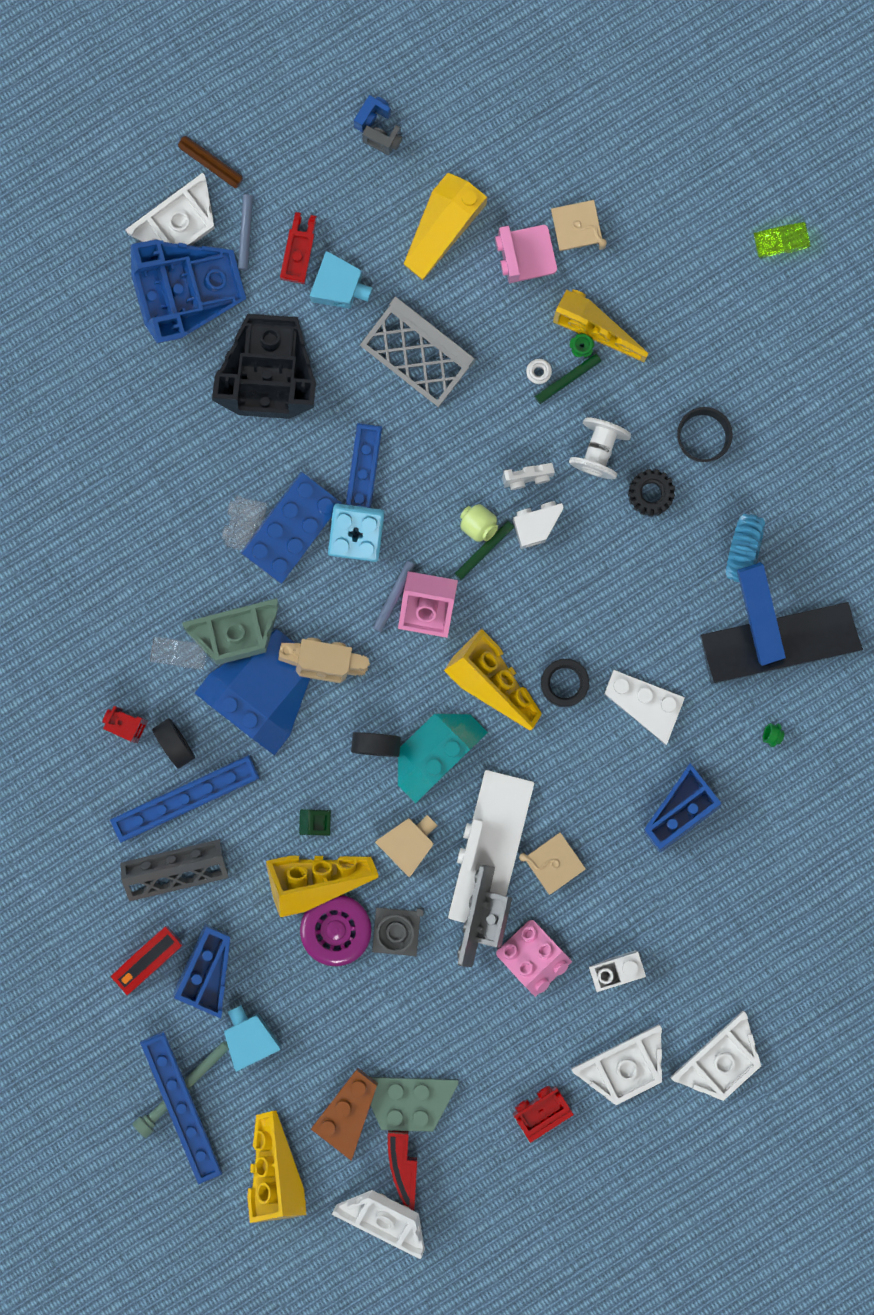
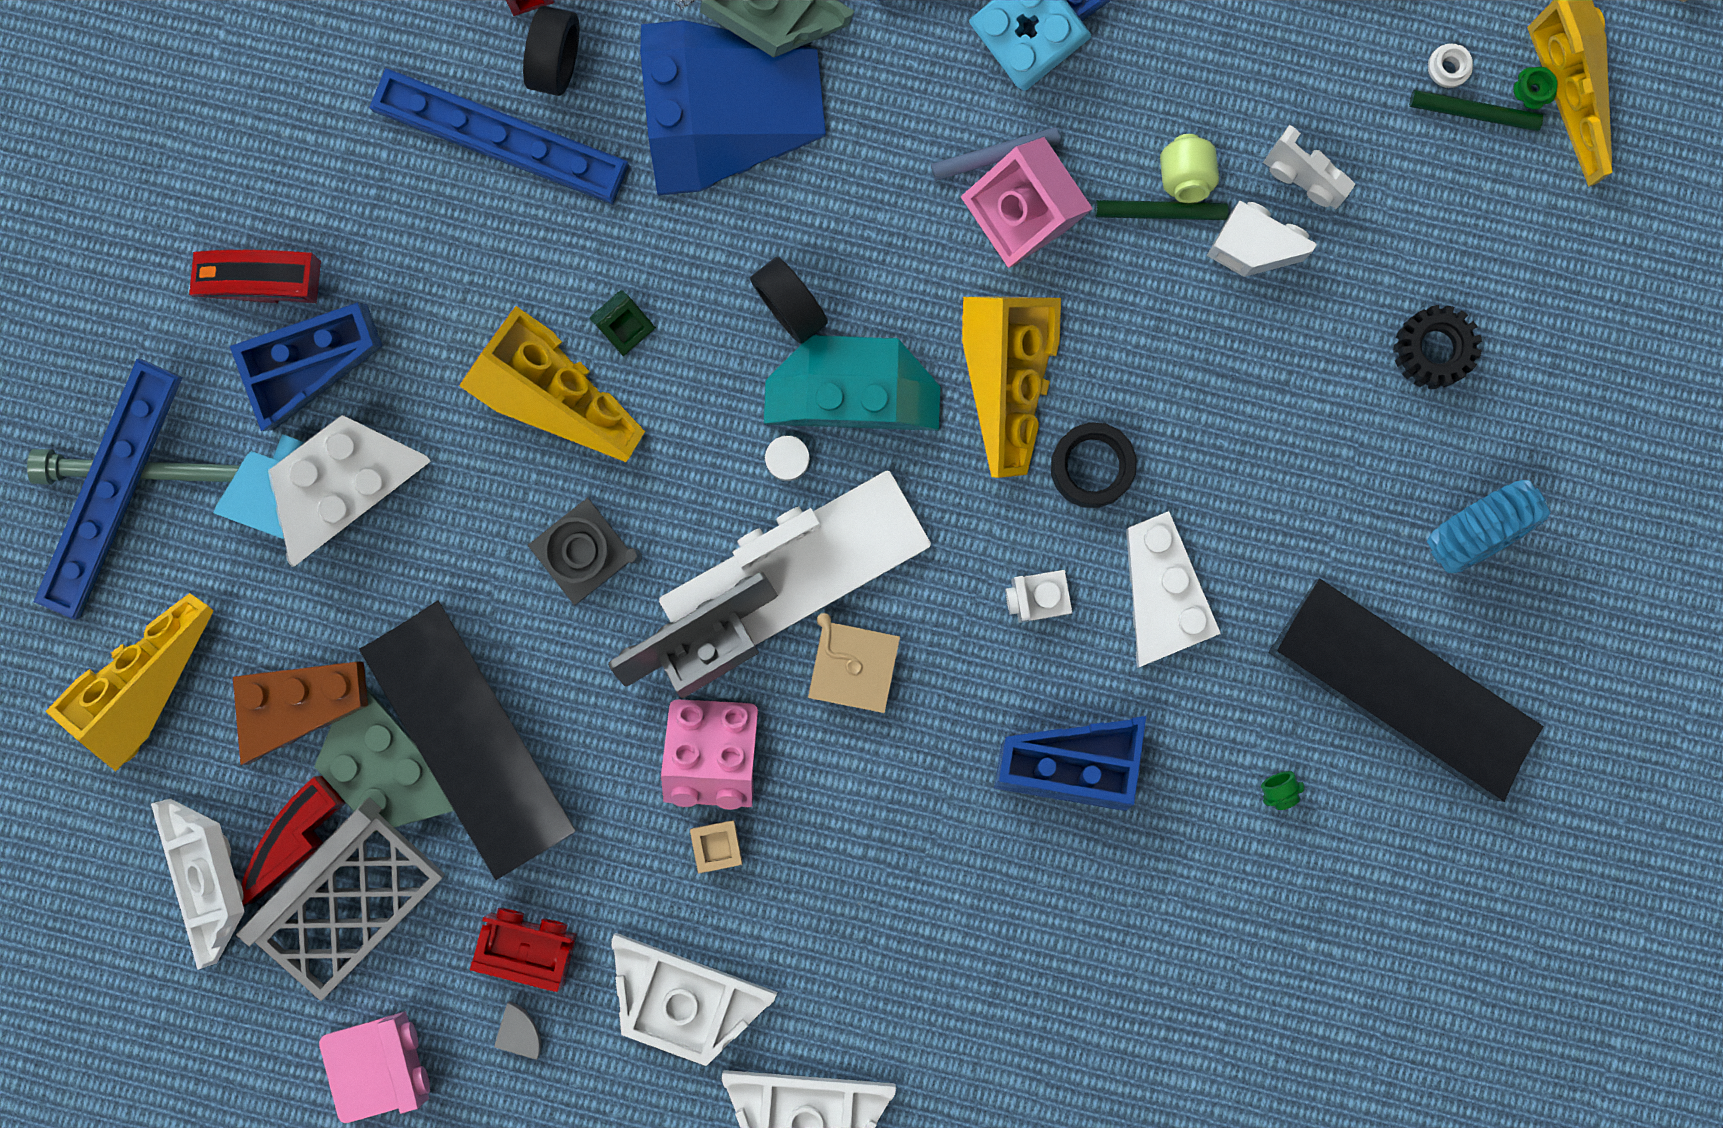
camera: 50 degrees right, 0 degrees up
(172, 866) = (397, 195): dark grey fence -> none
(271, 1007) = (335, 482): none -> white wing
(323, 660) = (832, 138): tan hinge -> none
(336, 931) = (509, 475): magenta wheel -> none
(408, 843) = (703, 460): tan torso -> none
(427, 1170) = (306, 884): none -> light grey fence
(432, 1054) = (467, 741): none -> black arch
(439, 807) = (787, 458): none -> white tile
(532, 1222) = (375, 1068): none -> bright pink bracket
(574, 992) = (716, 846): none -> tan plate
(574, 1148) = (518, 1033): none -> light grey tile
(598, 757) = (1039, 596): none -> white bracket
(600, 448) = (1455, 216): white hose -> none
(617, 971) = (792, 874): white slope -> none
(719, 416) = (1610, 325): black tyre -> none
(761, 613) = (1427, 623): blue tile -> none

